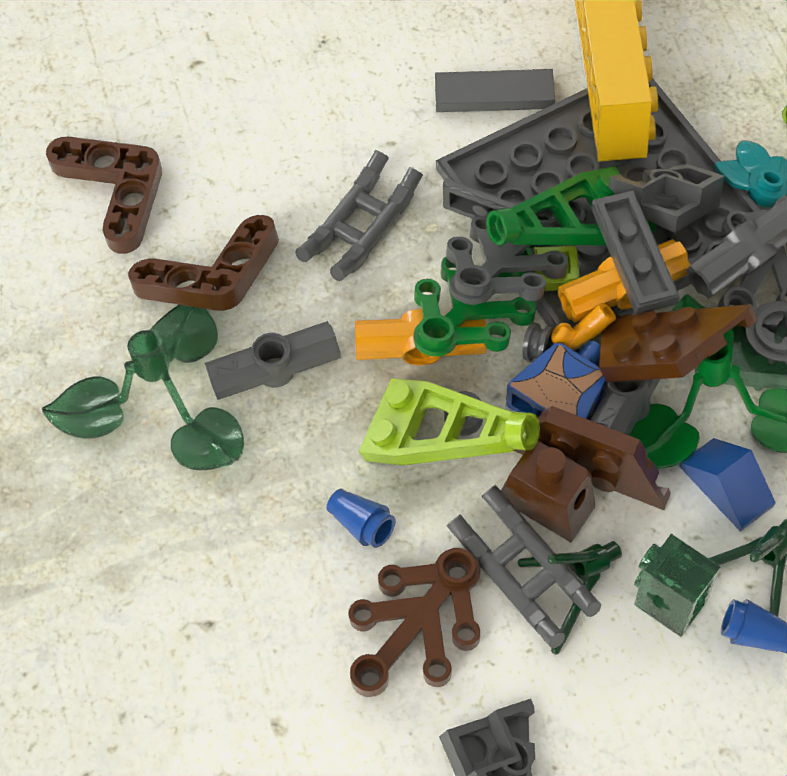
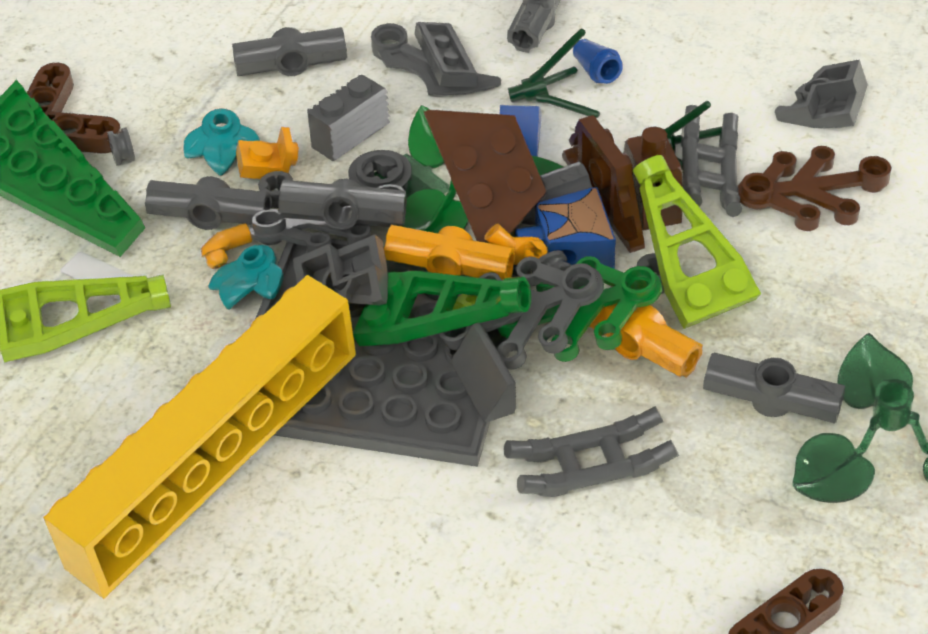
camera: 140 degrees left, 15 degrees down
(216, 286) = (762, 473): reddish brown beam -> none
(364, 519) = (798, 252): blue cone -> none
(494, 90) = (357, 487): dark grey tile -> none
(635, 252) = (430, 240): dark grey tile -> none
(674, 583) = (631, 81): clear green brick -> none

